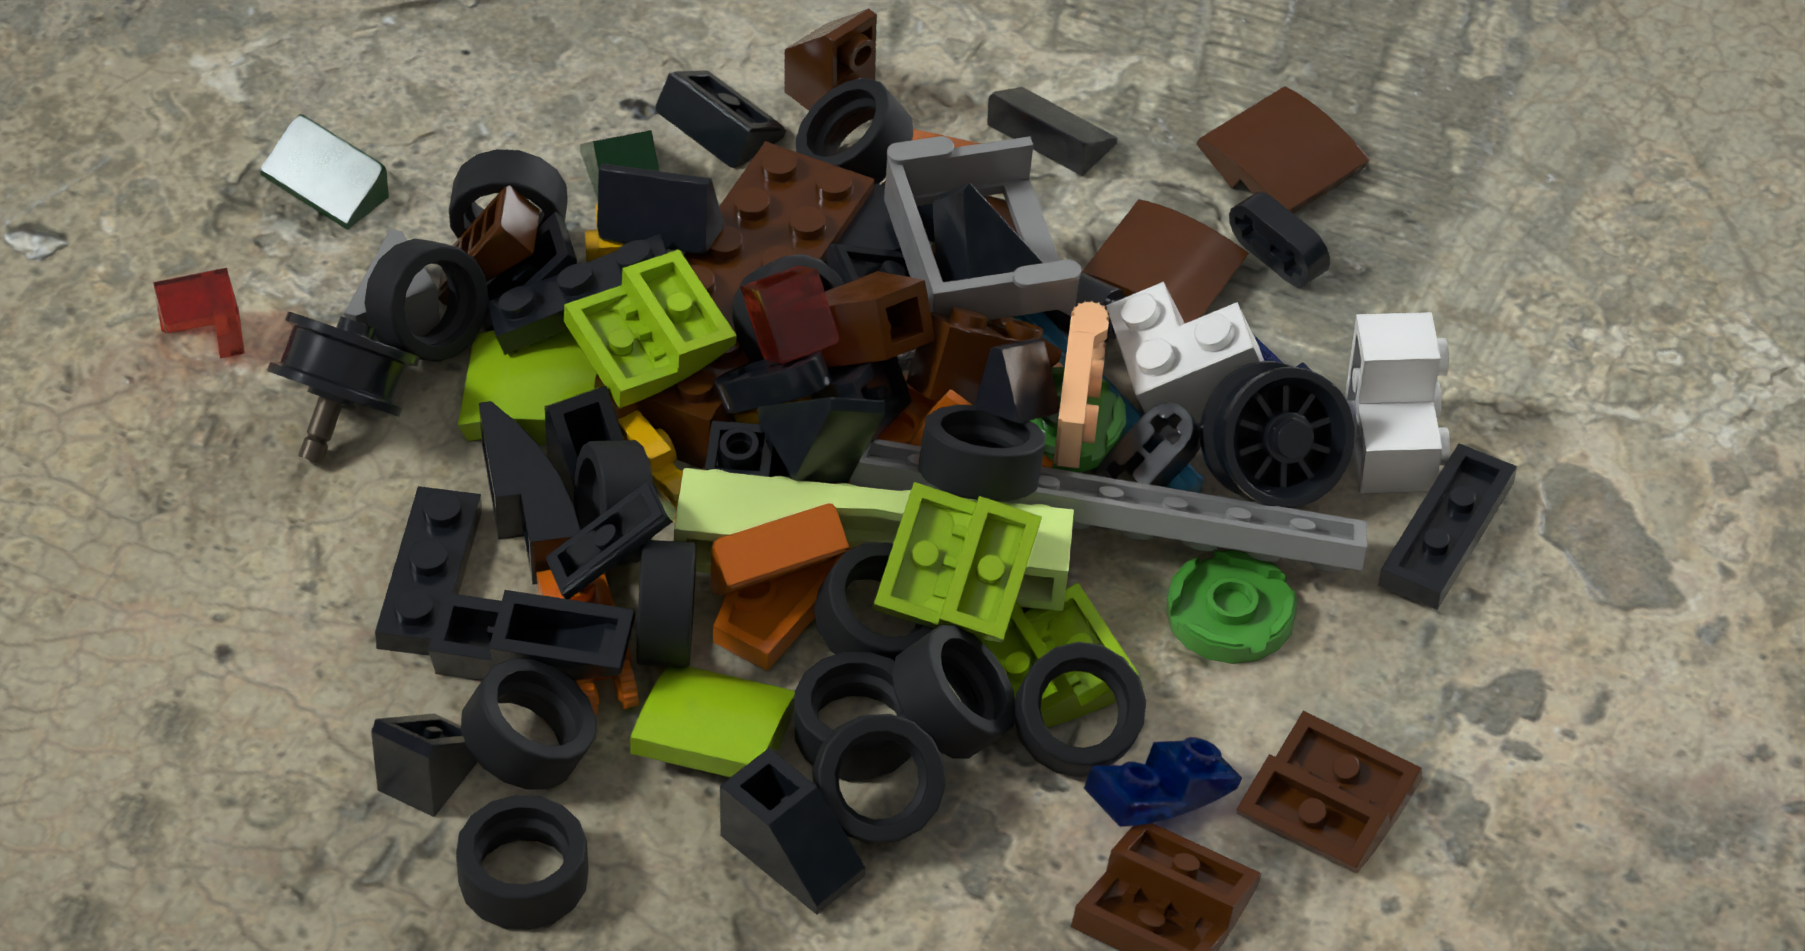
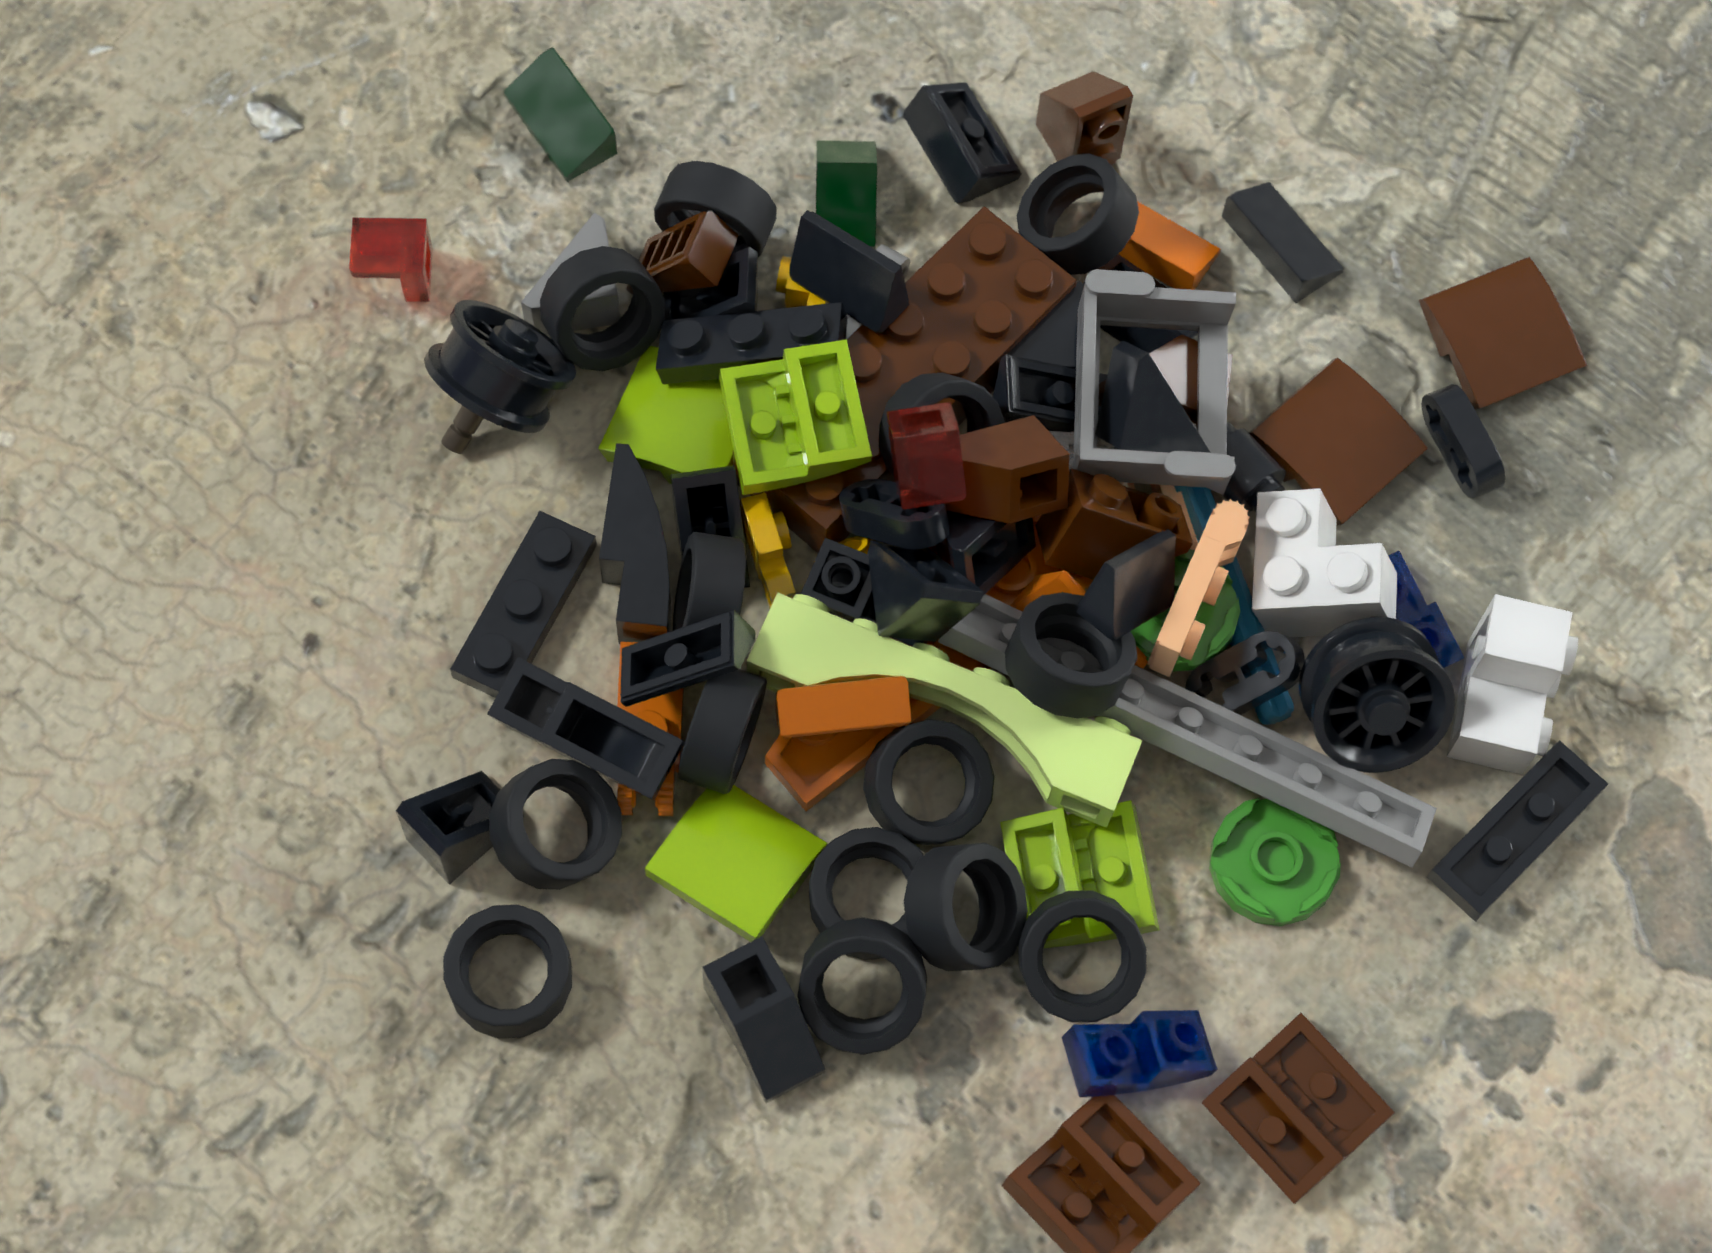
camera: 15 degrees right, 20 degrees up
(957, 562) = (1008, 774): lime slope -> none

